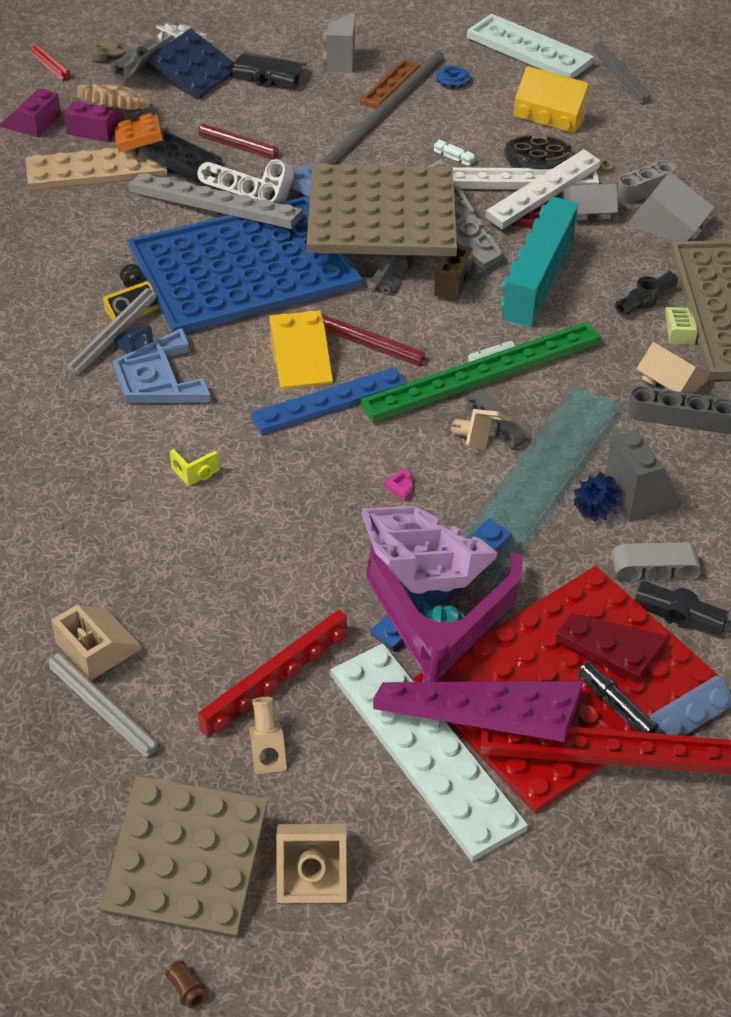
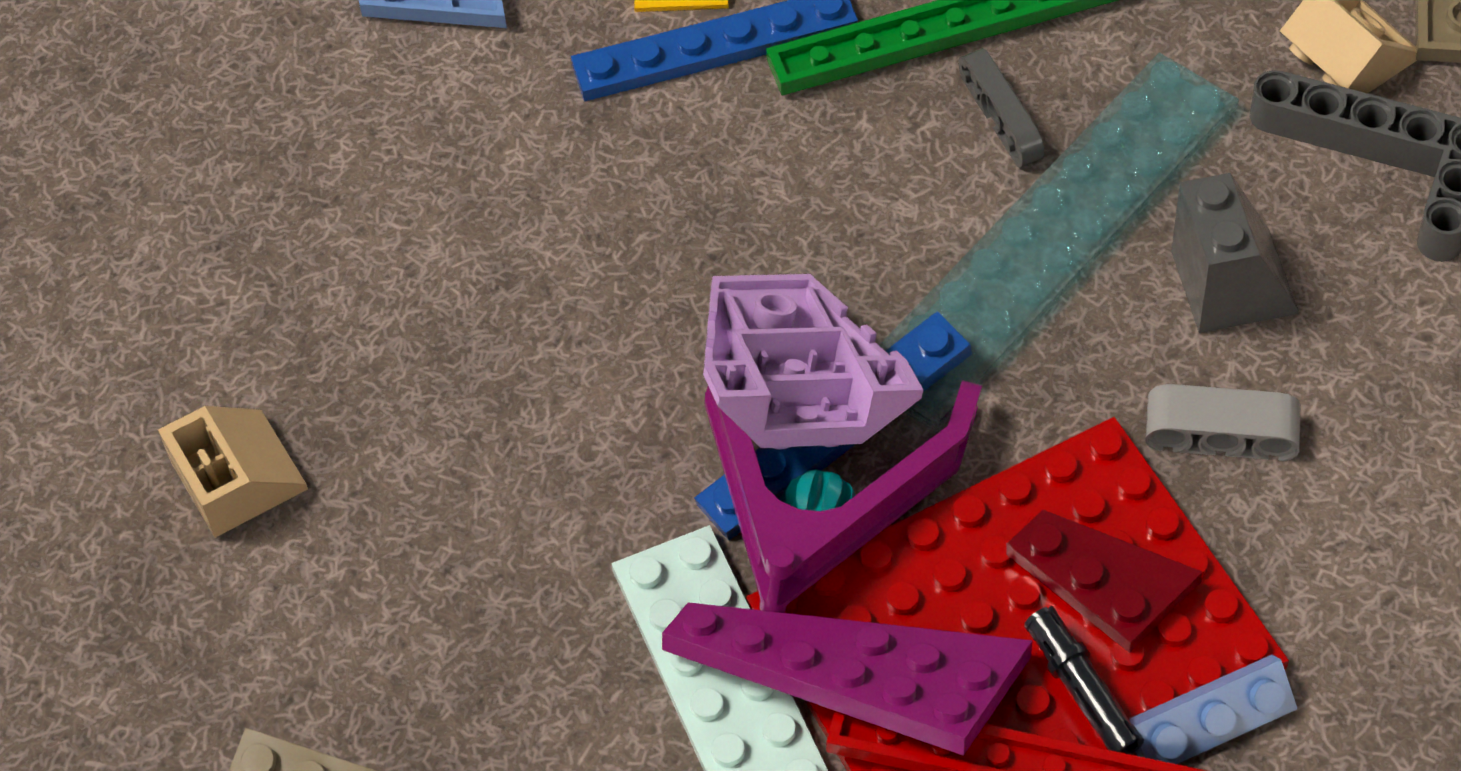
camera: 15 degrees right, 10 degrees up
(103, 705) = (228, 584): light grey axle -> none
(197, 470) = (460, 162): neon yellow bracket -> none
(266, 735) = (479, 673): tan bracket -> none
(267, 677) = (502, 567): red plate -> none
(400, 484) = (806, 221): dark pink tile -> none
(478, 428) = (960, 127): tan bracket -> none
(598, 497) = (1145, 285): clear blue gear -> none
(681, 608) = (1247, 515): black piece -> none

